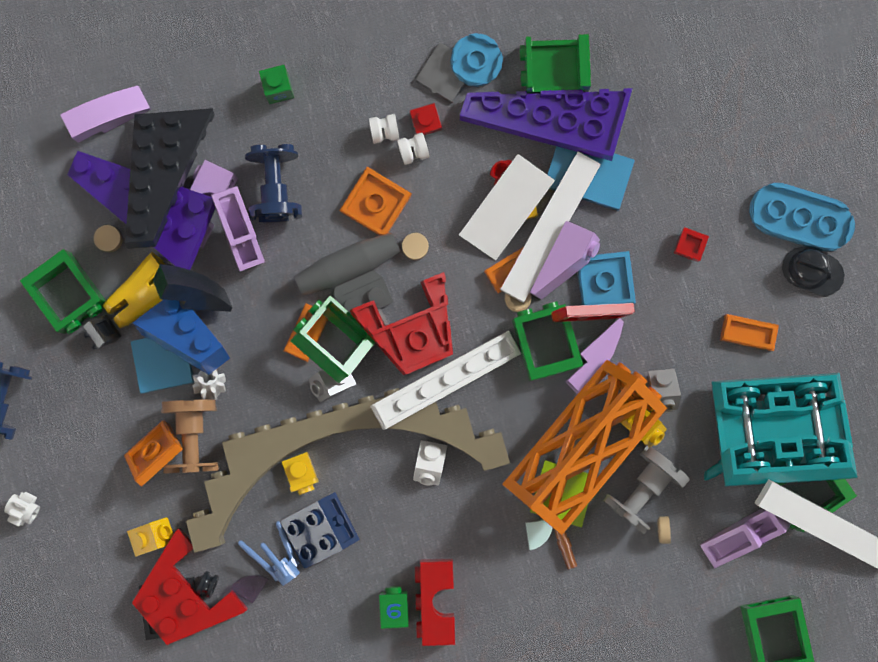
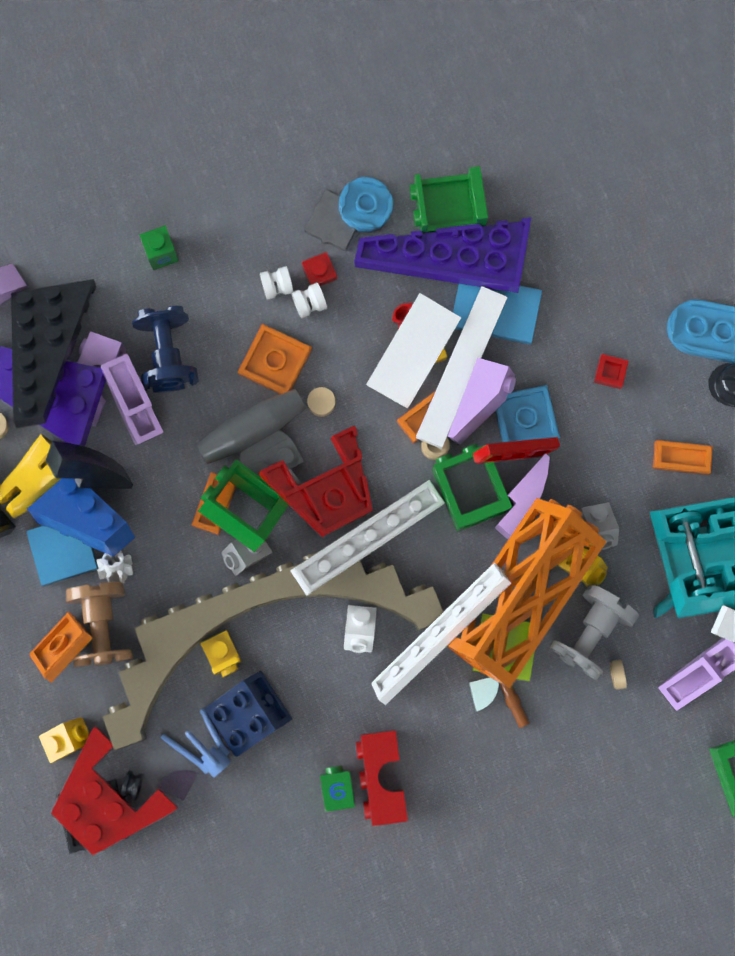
camera: 10 degrees left, 5 degrees down
(503, 477) = (440, 633): none -> white tile

